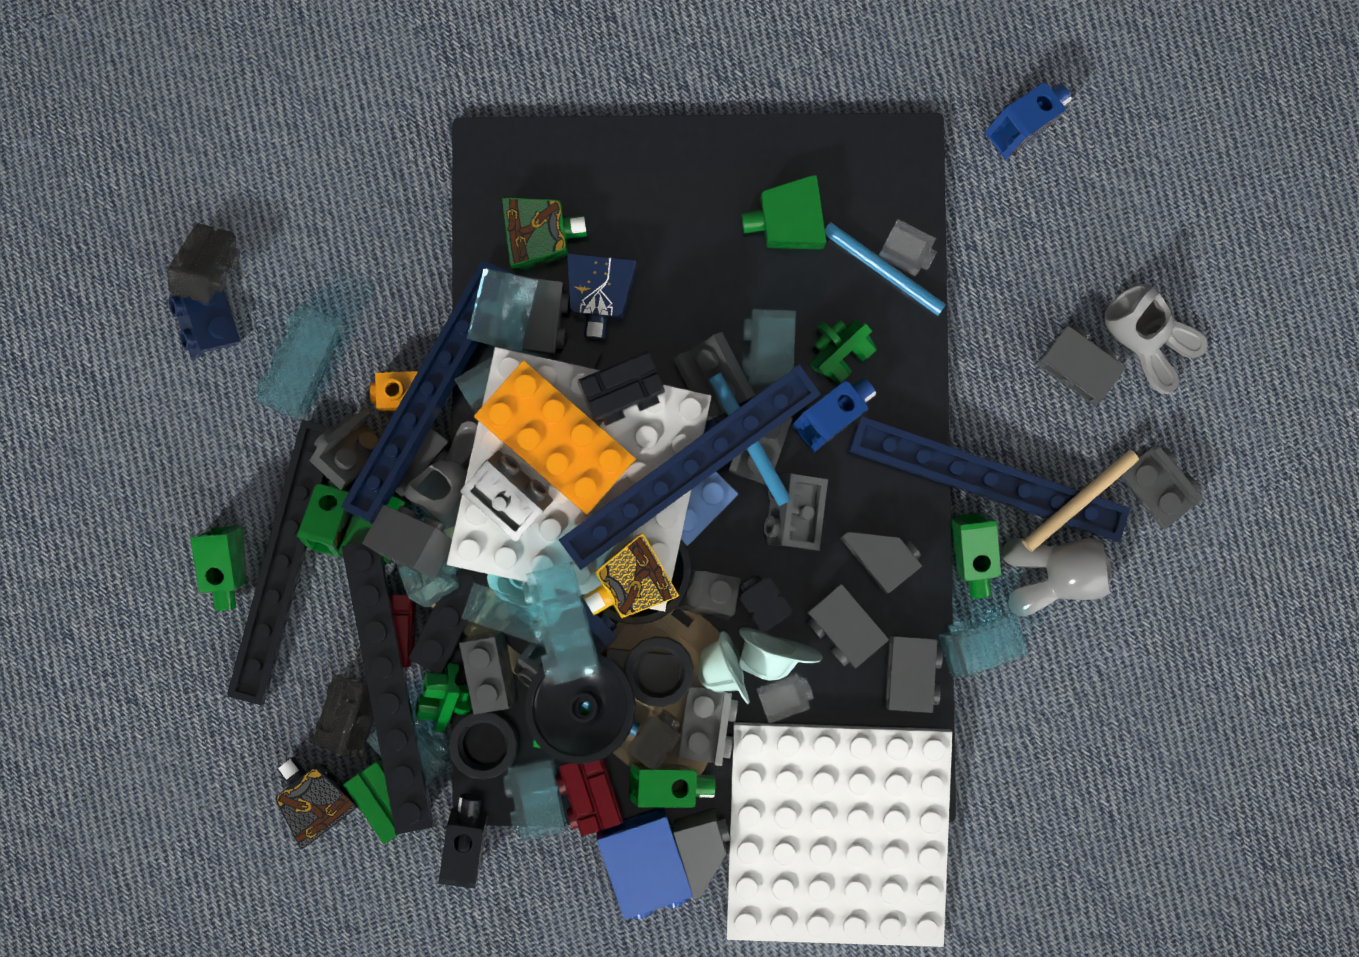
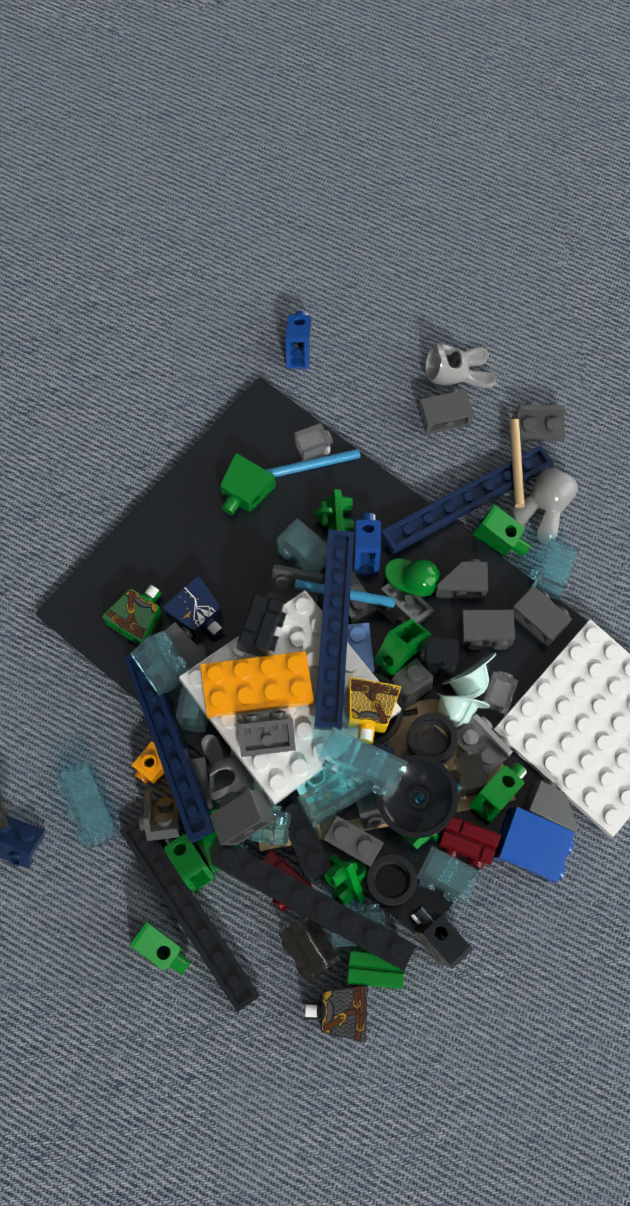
camera: 55 degrees left, 15 degrees down
(722, 552) = (400, 647): none -> green torso
(838, 494) = (413, 577): none -> green cap

